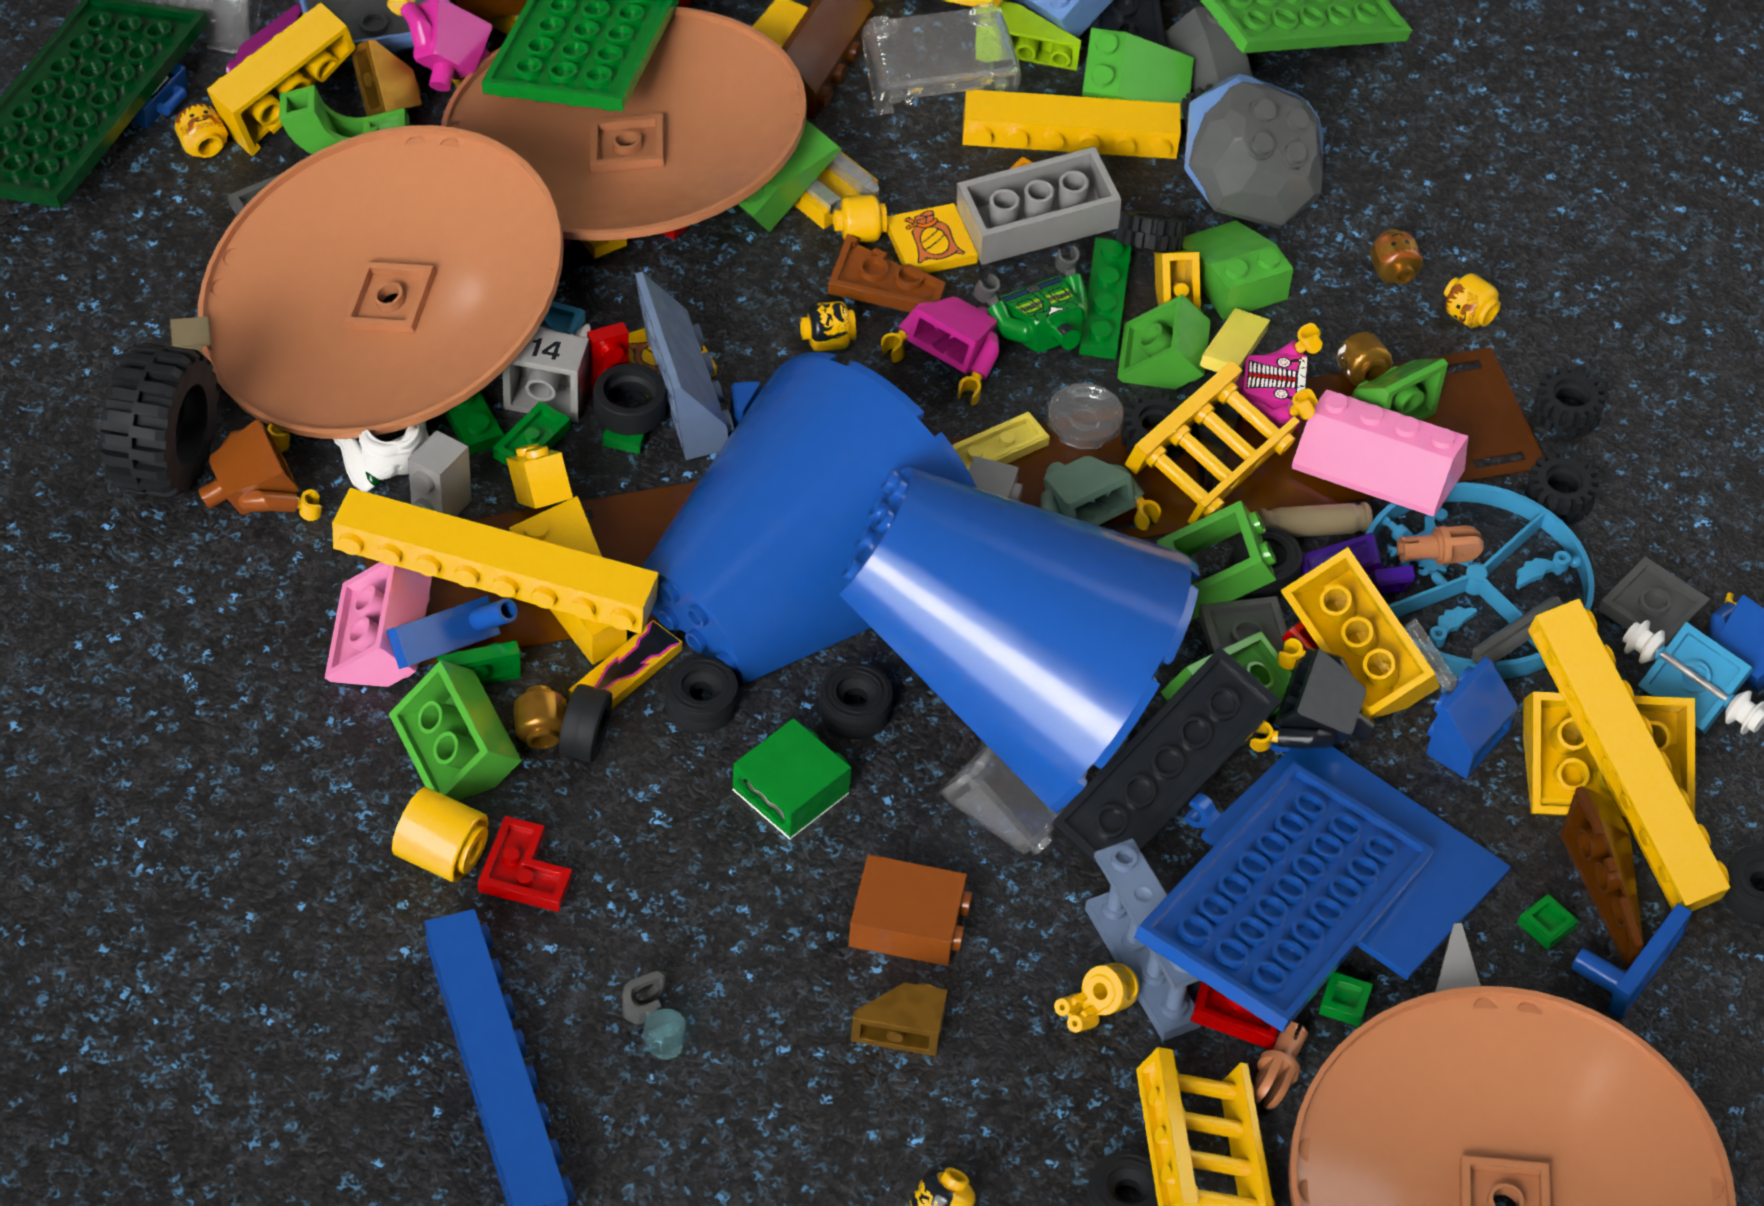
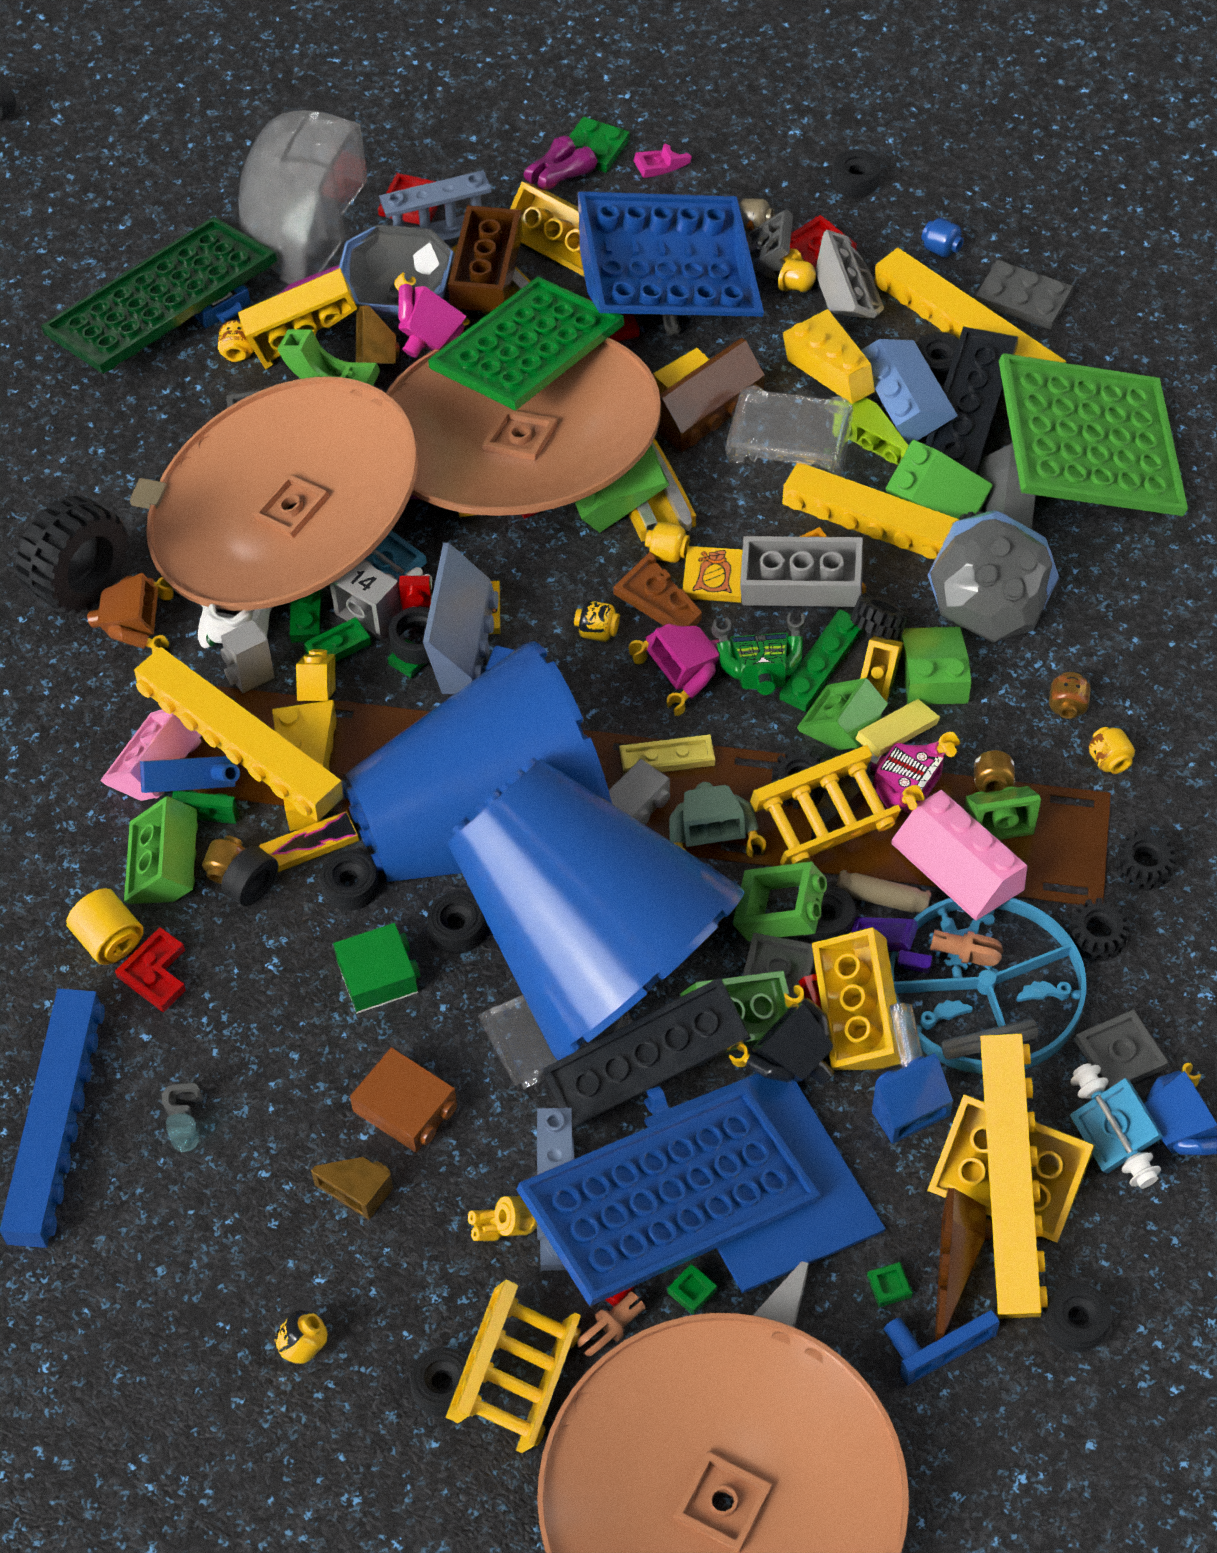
camera: 30 degrees right, 5 degrees up
(1085, 415) = (752, 750): clear tile -> none

